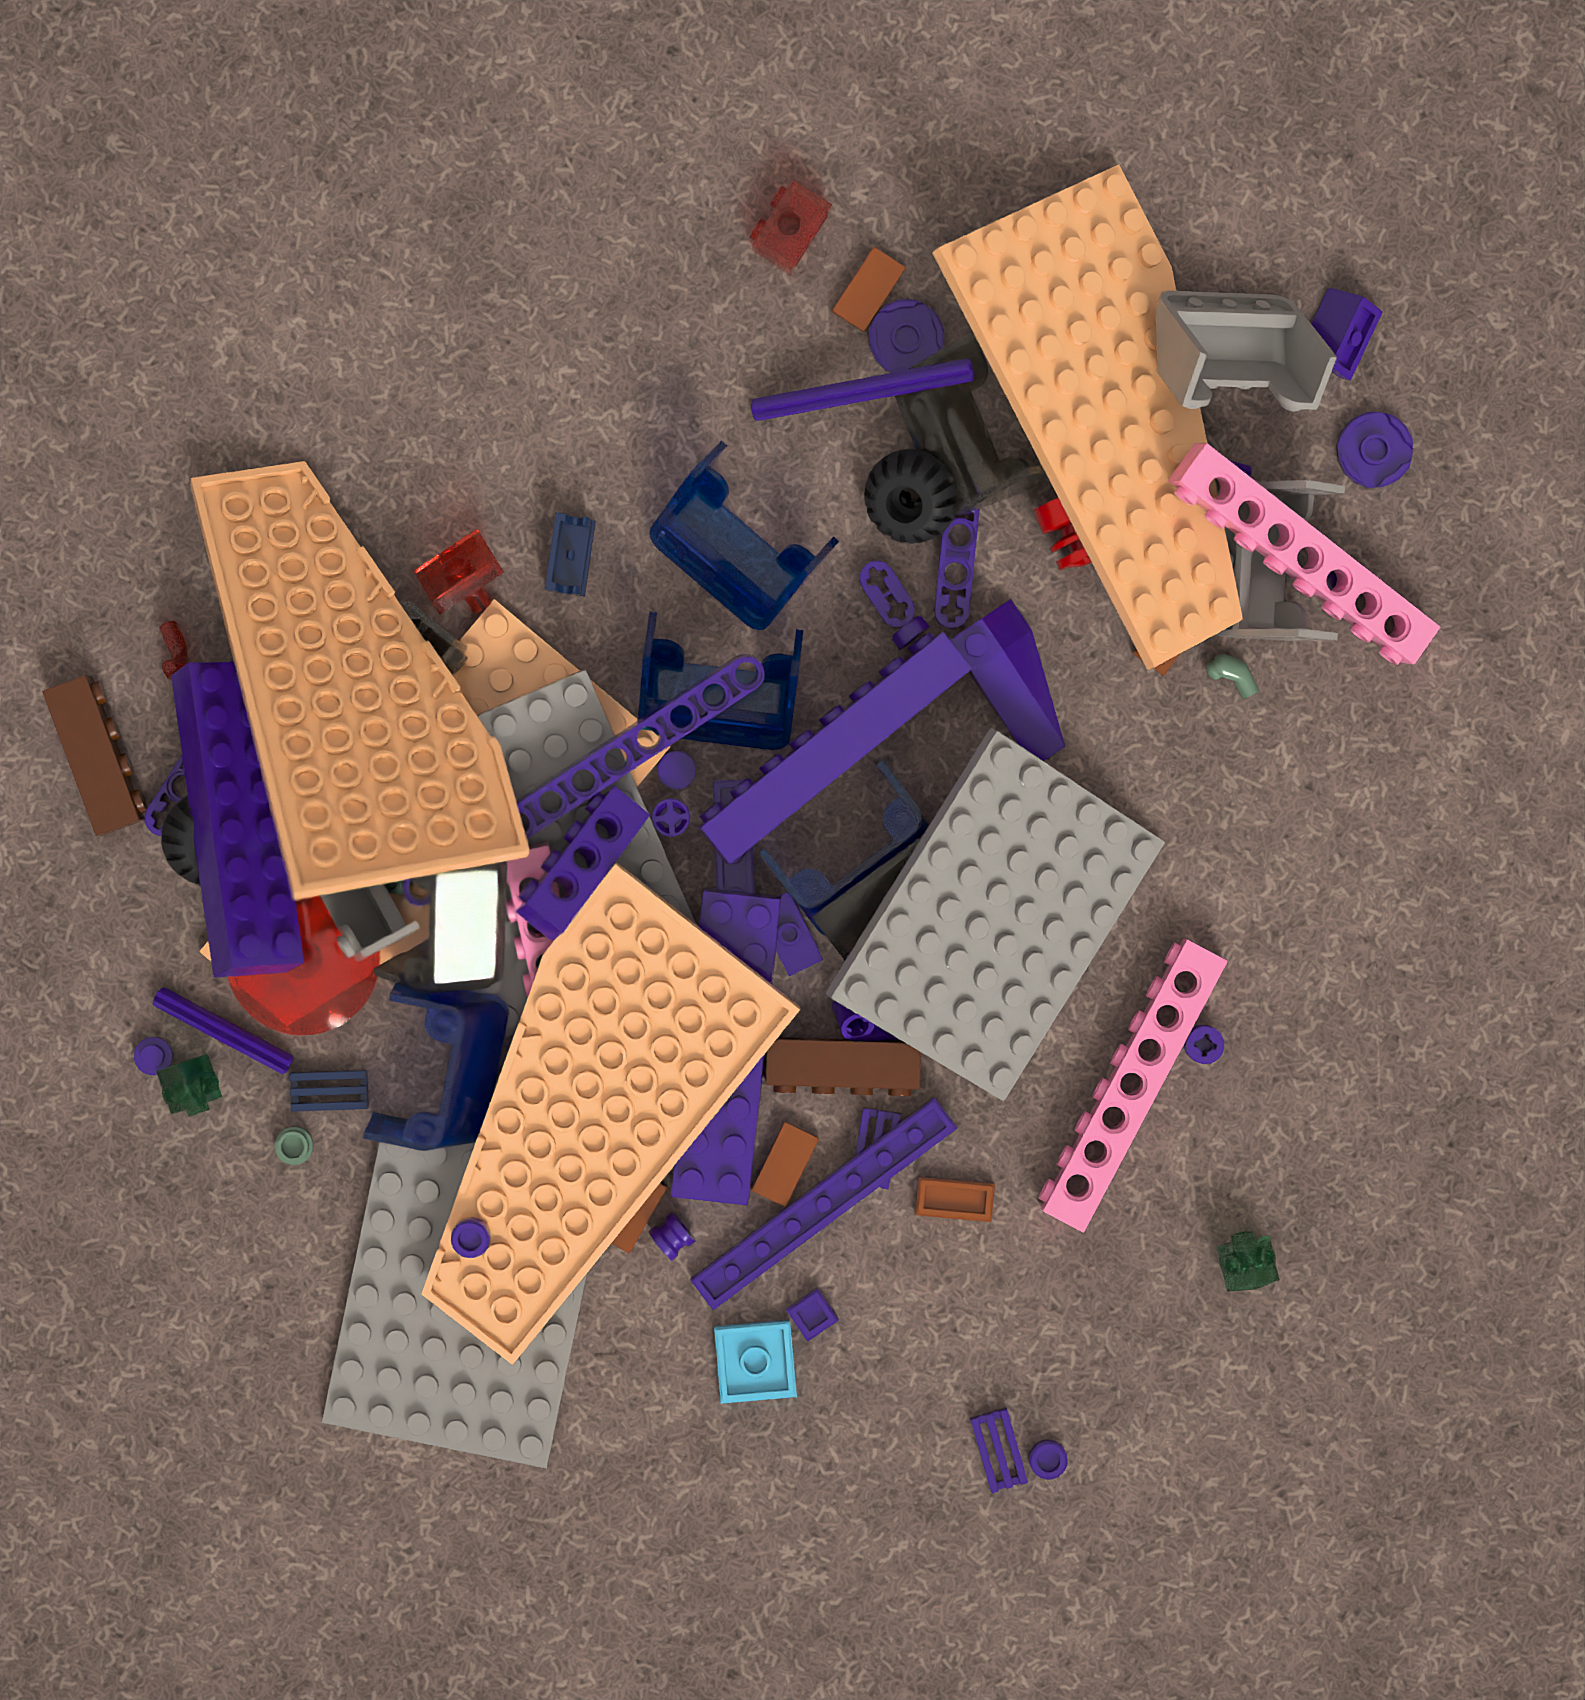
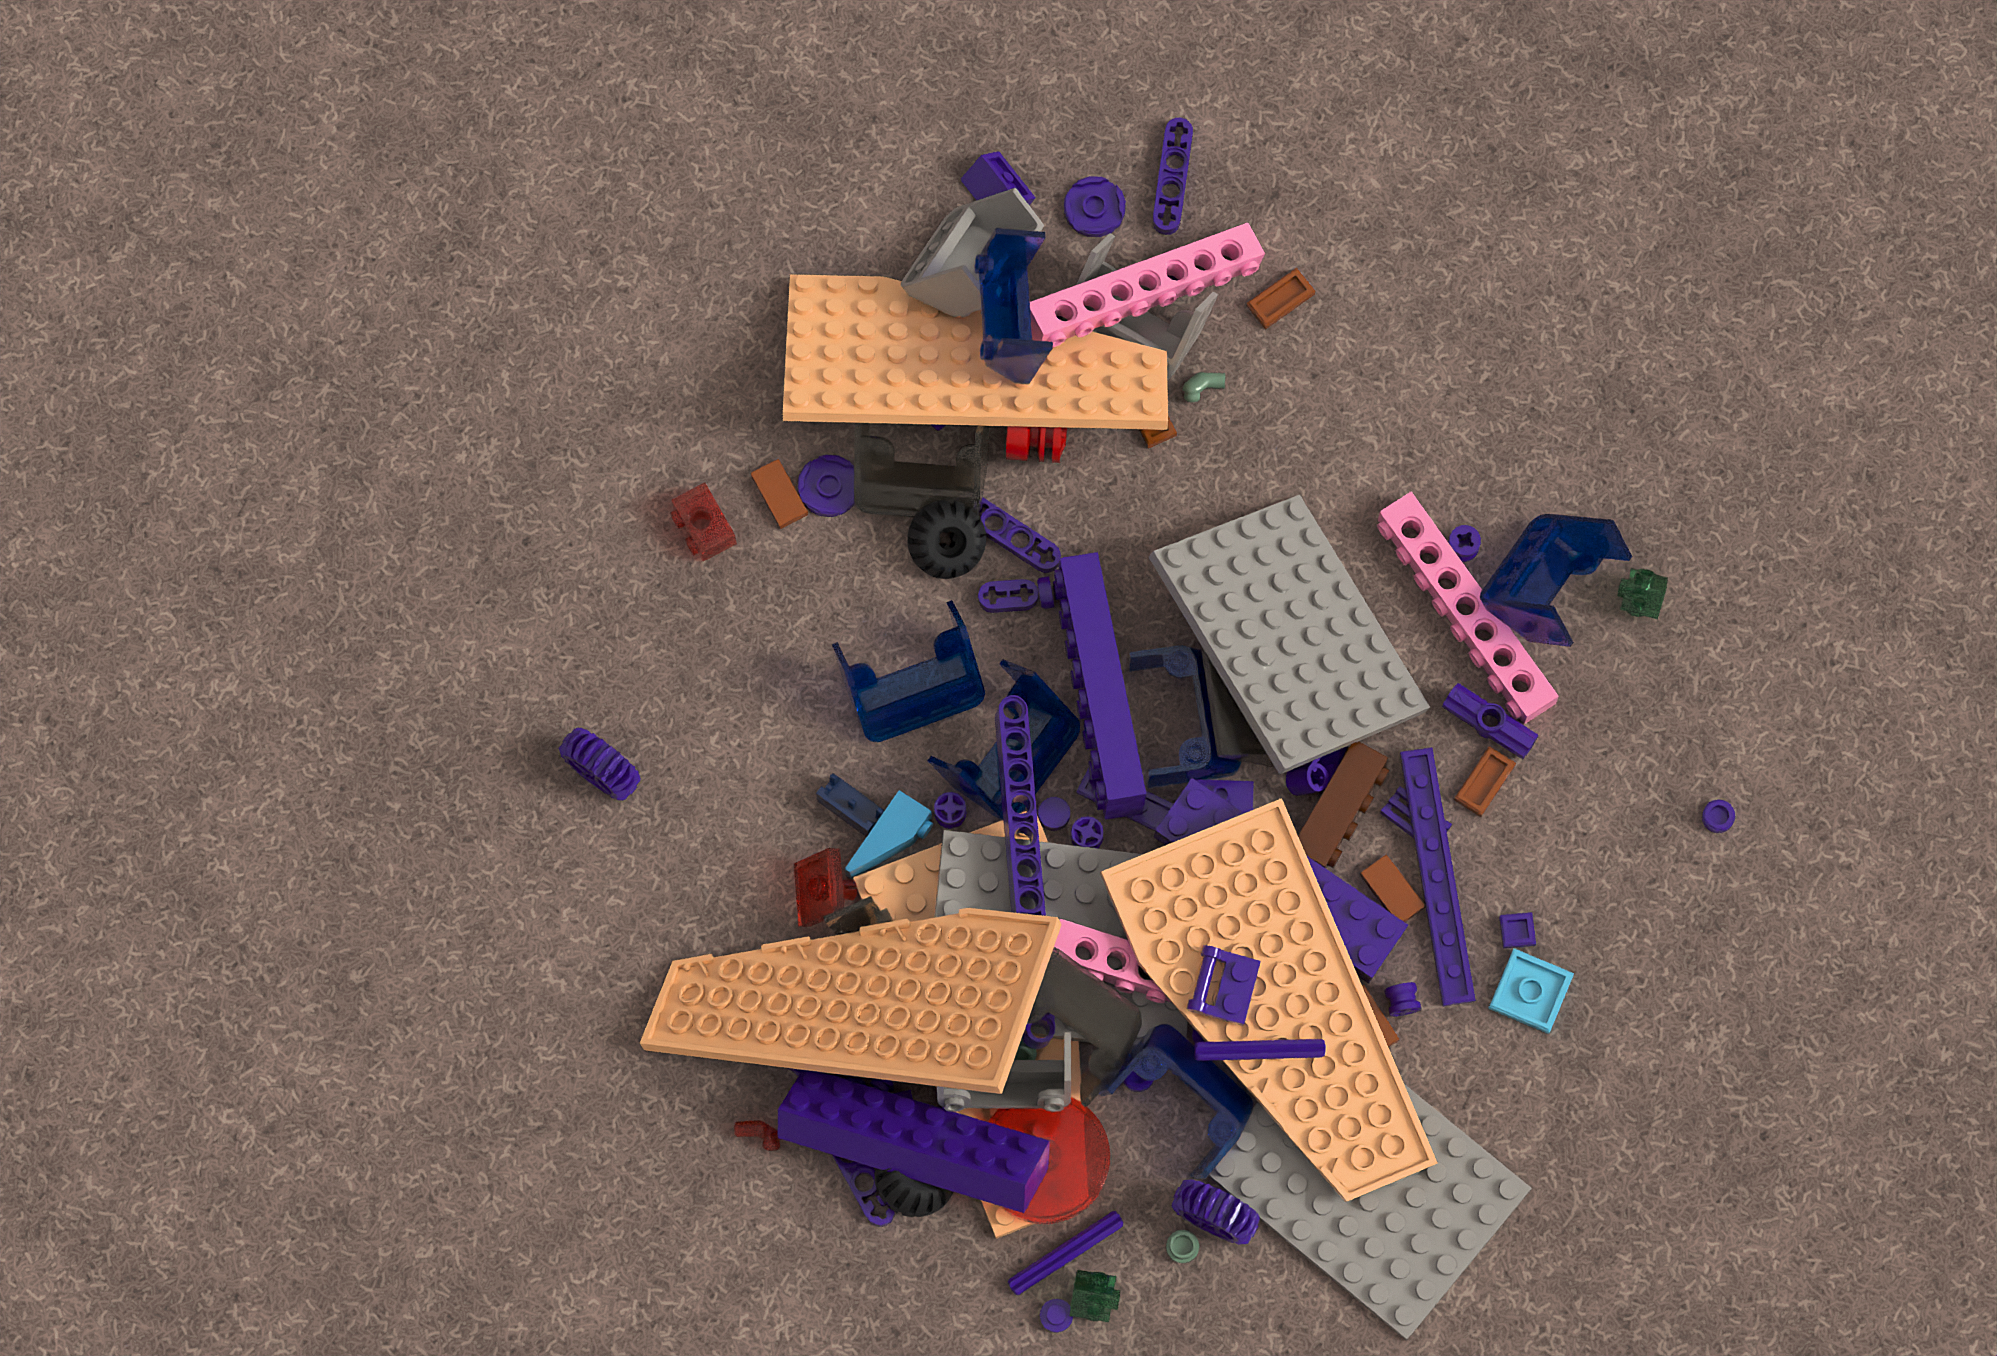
camera: 60 degrees left, 15 degrees down
(95, 755) = (804, 1233): reddish brown brick -> none
(296, 1092) = (1142, 1223): dark blue tile -> none
(339, 1164) = (1215, 1211): none -> dark purple gear
(464, 267) = (599, 764): none -> dark purple gear
(470, 1237) = (1323, 1136): dark purple tile -> none
(521, 1126) = (1260, 1049): none -> dark purple axle
(568, 616) = (894, 832): none -> dark azure slope
(568, 1067) = (1234, 987): none -> dark purple plate
(617, 655) = (950, 803): none -> dark purple wheel
(622, 821) = (1087, 899): dark purple brick -> none
(862, 389) = (850, 530): dark purple axle -> none
(1008, 1481) = (1697, 836): dark purple tile -> none
(1012, 678) = (1117, 538): dark purple wedge -> none
(1020, 1197) = (1473, 708): none -> dark purple piece
(1183, 426) = (1006, 305): none -> clear blue windscreen
(1212, 1137) = (1539, 567): none -> clear blue windscreen
(1377, 705) = (1280, 298): none -> dark orange tile
(1454, 513) = (1172, 176): none -> dark purple beam

